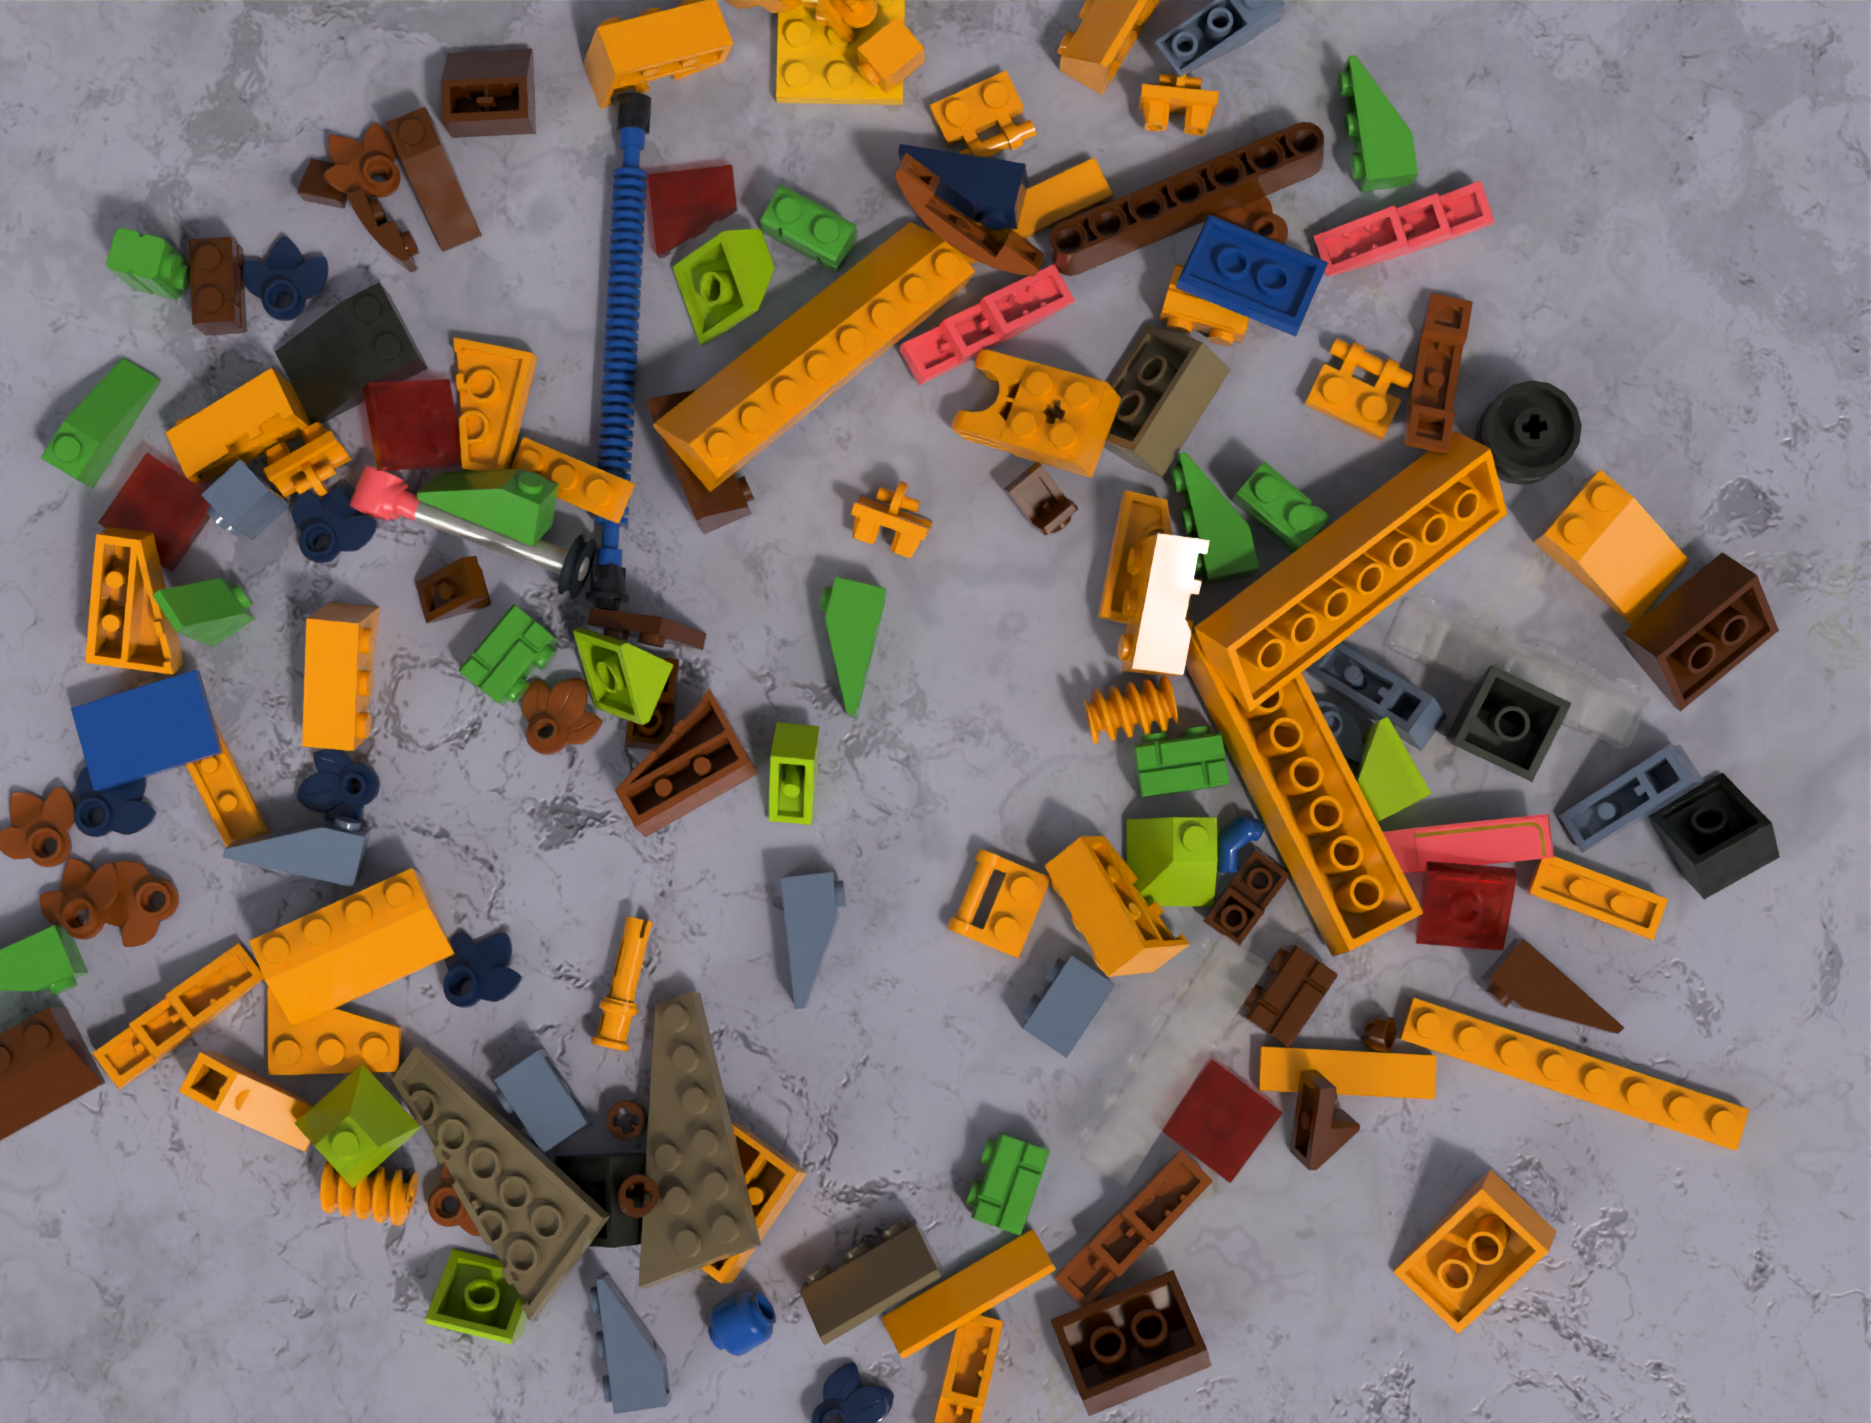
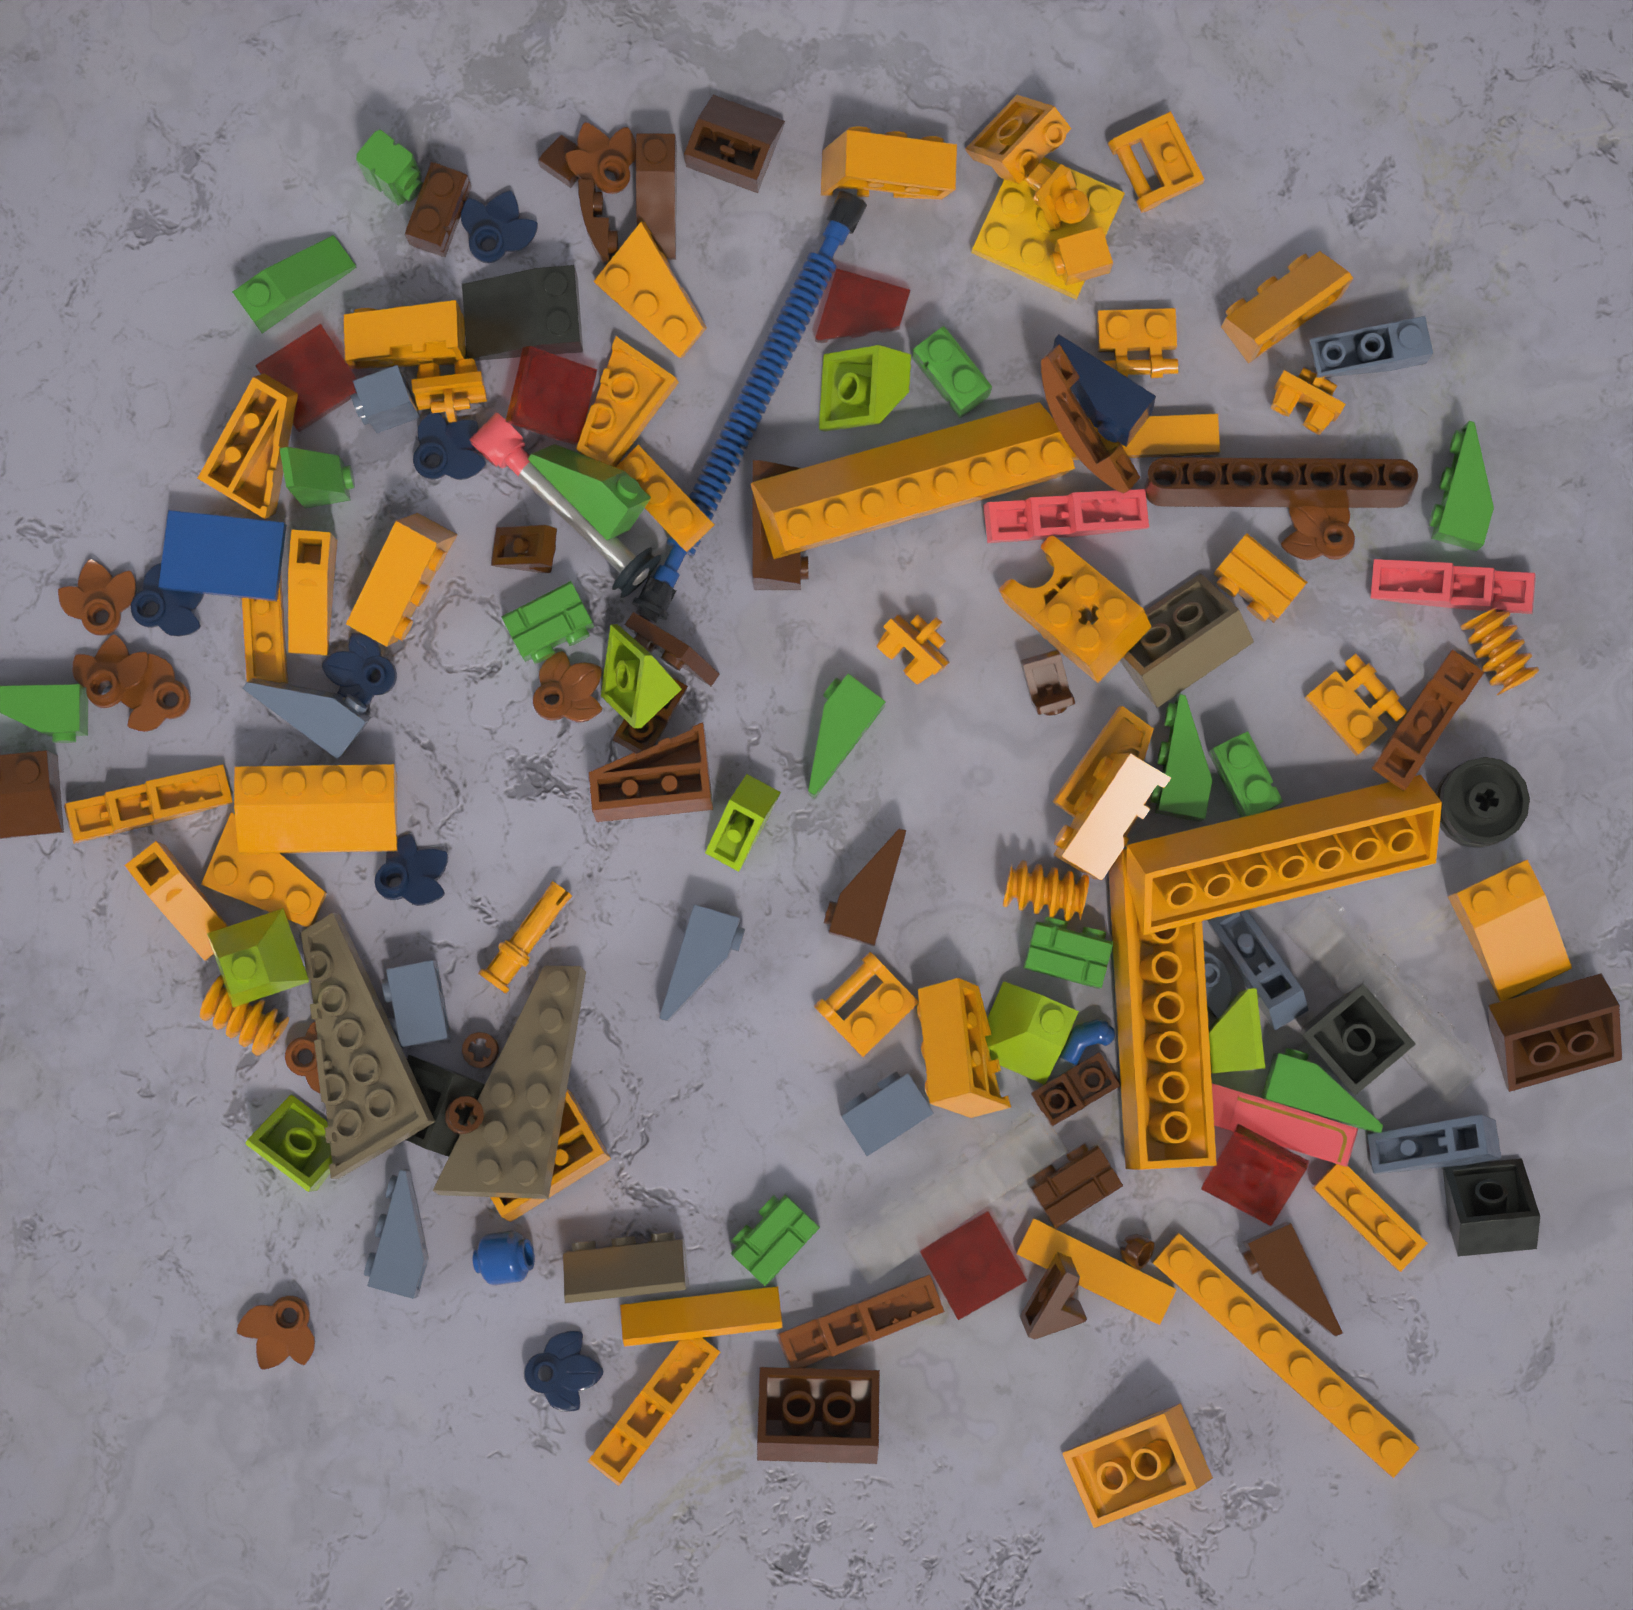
camera: 20 degrees right, 0 degrees up
(252, 727) = (310, 591): none -> light orange slope
(466, 277) = (648, 290): none -> light orange wing
(951, 798) = (864, 899): none -> reddish brown slope
(1251, 275) = (1305, 570): blue tile -> none
(1479, 271) = (1500, 649): none -> light orange piece
(1481, 795) = (1310, 1089): none -> bright green slope

